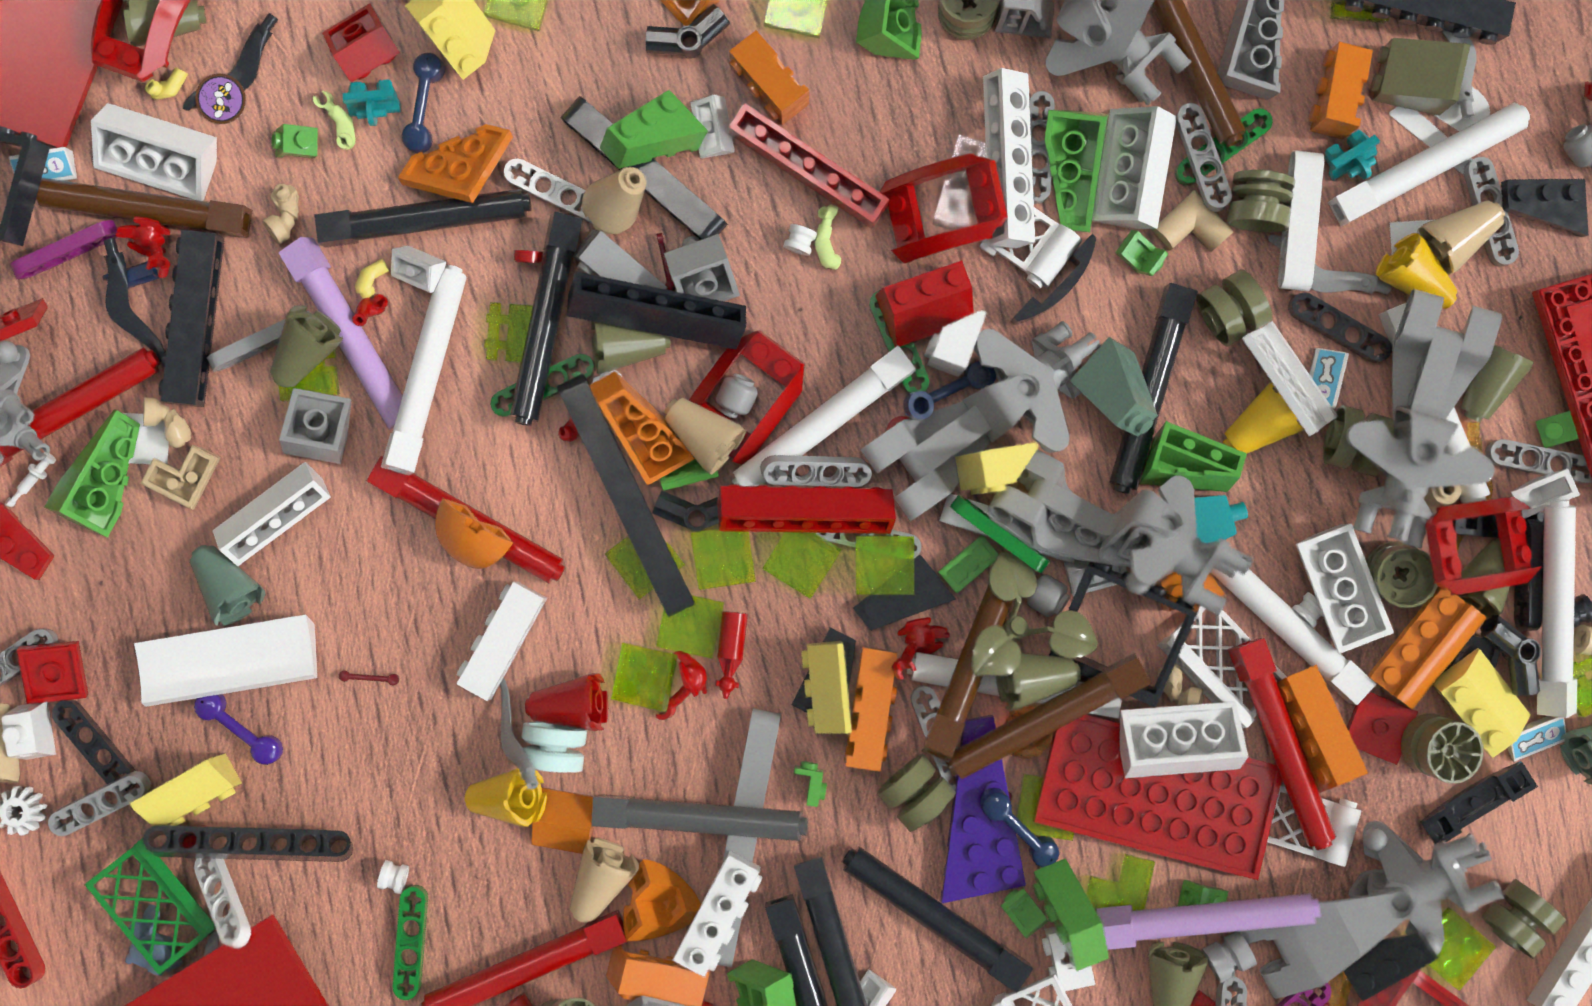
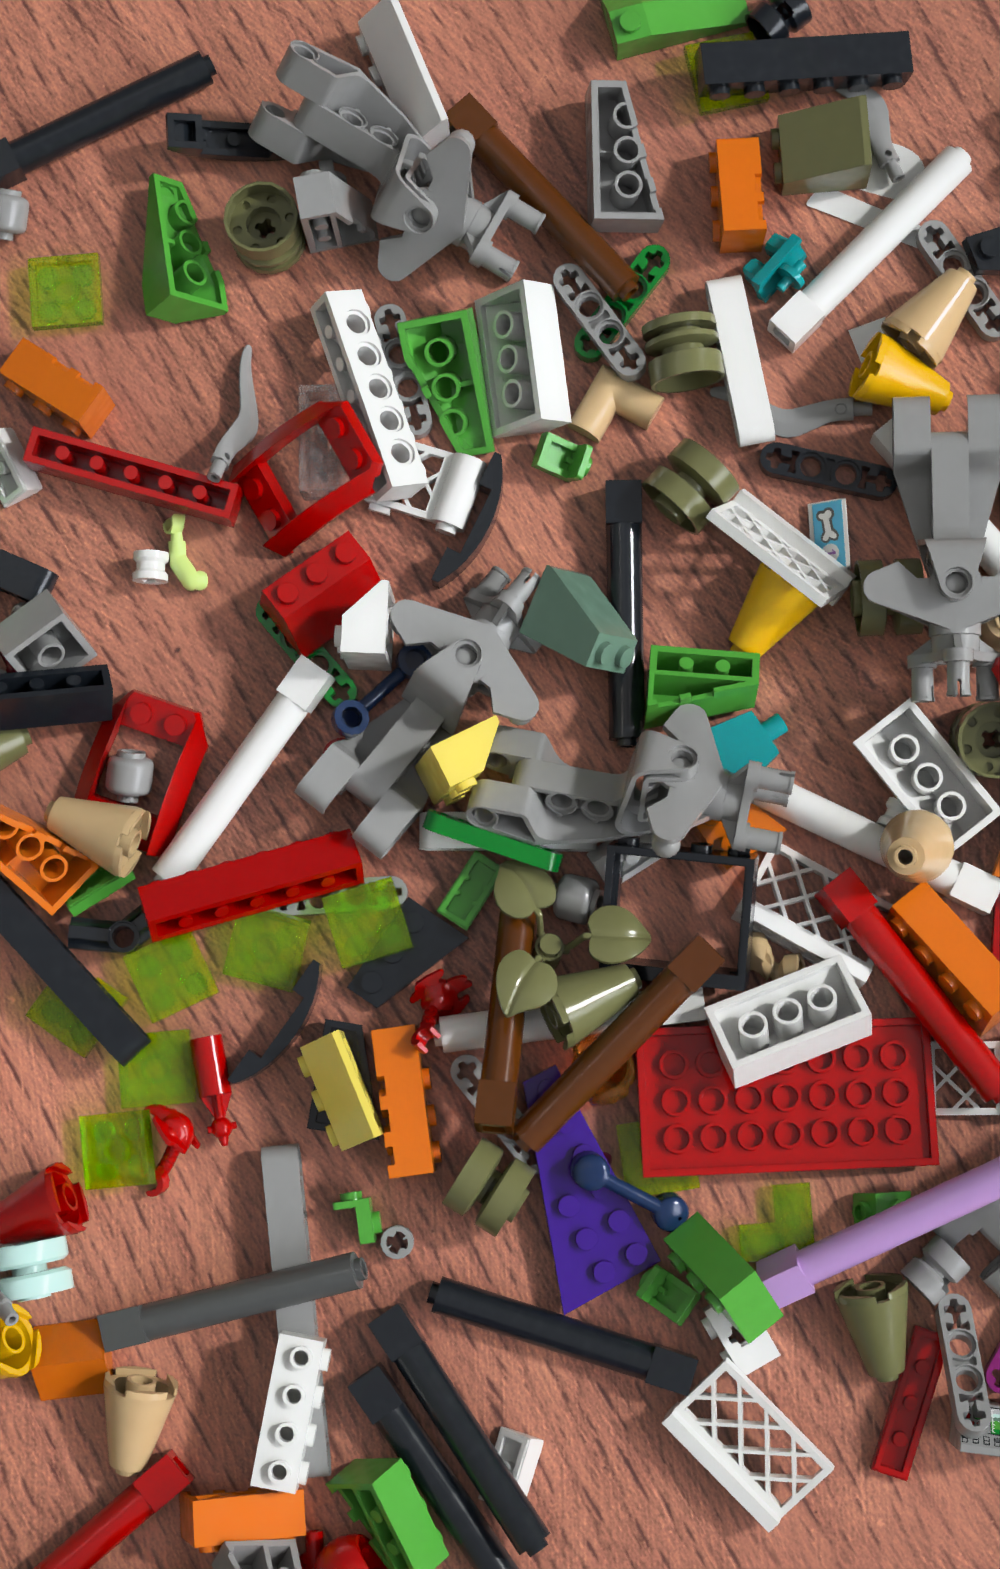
camera: 10 degrees left, 5 degrees down
(658, 903) = (217, 1423): orange brick -> none
(766, 644) = (253, 1063): none -> black slope
(815, 475) = (251, 841): light grey beam -> none
(834, 818) = (391, 1232): none -> light grey bush
(905, 152) = (245, 425): none -> light grey piece
(1324, 629) = (927, 840): none -> tan cone

